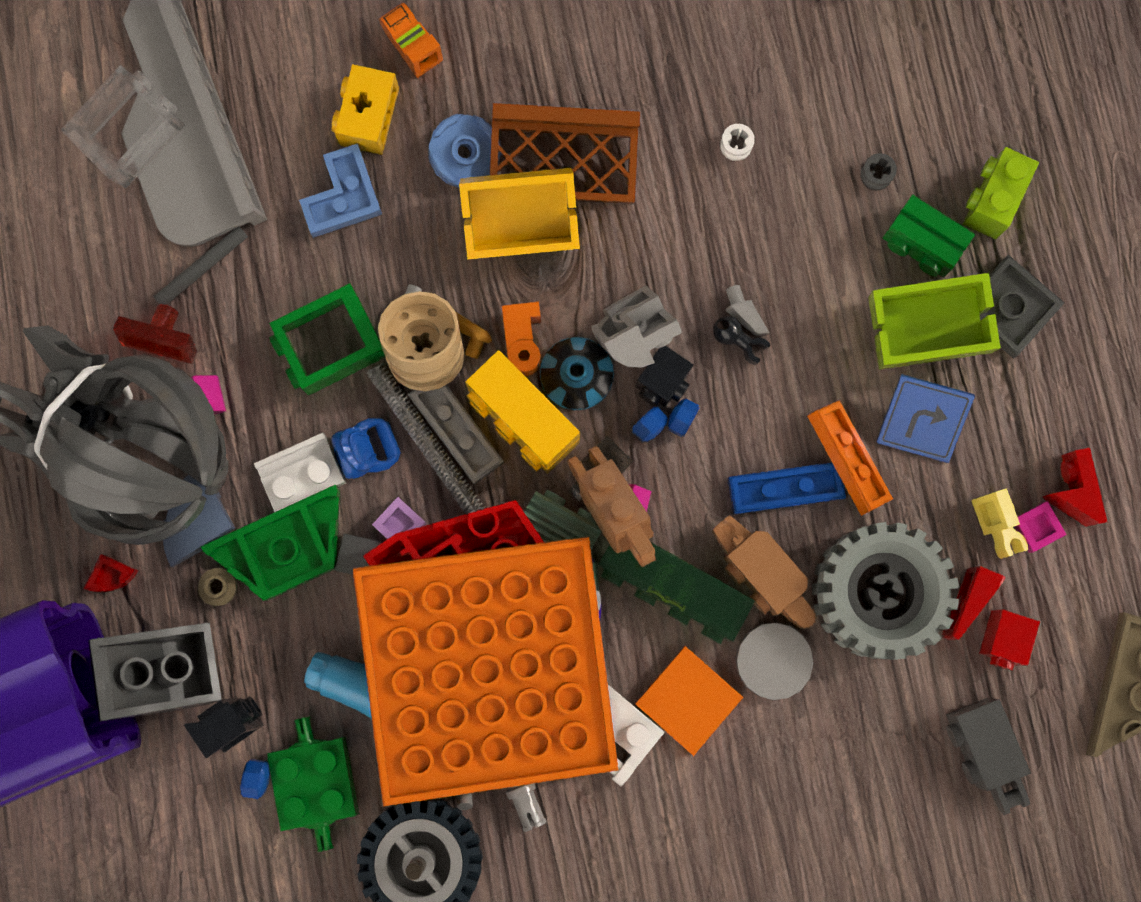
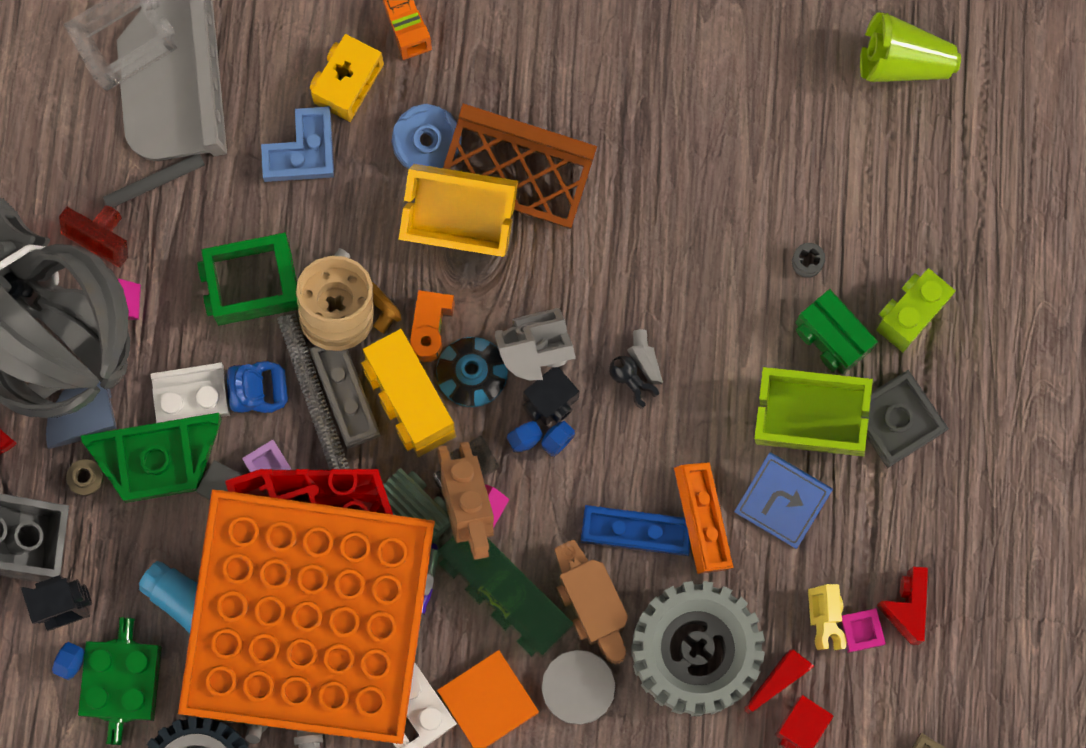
camera: 15 degrees right, 5 degrees down
(740, 131) = (689, 187): white bush -> none

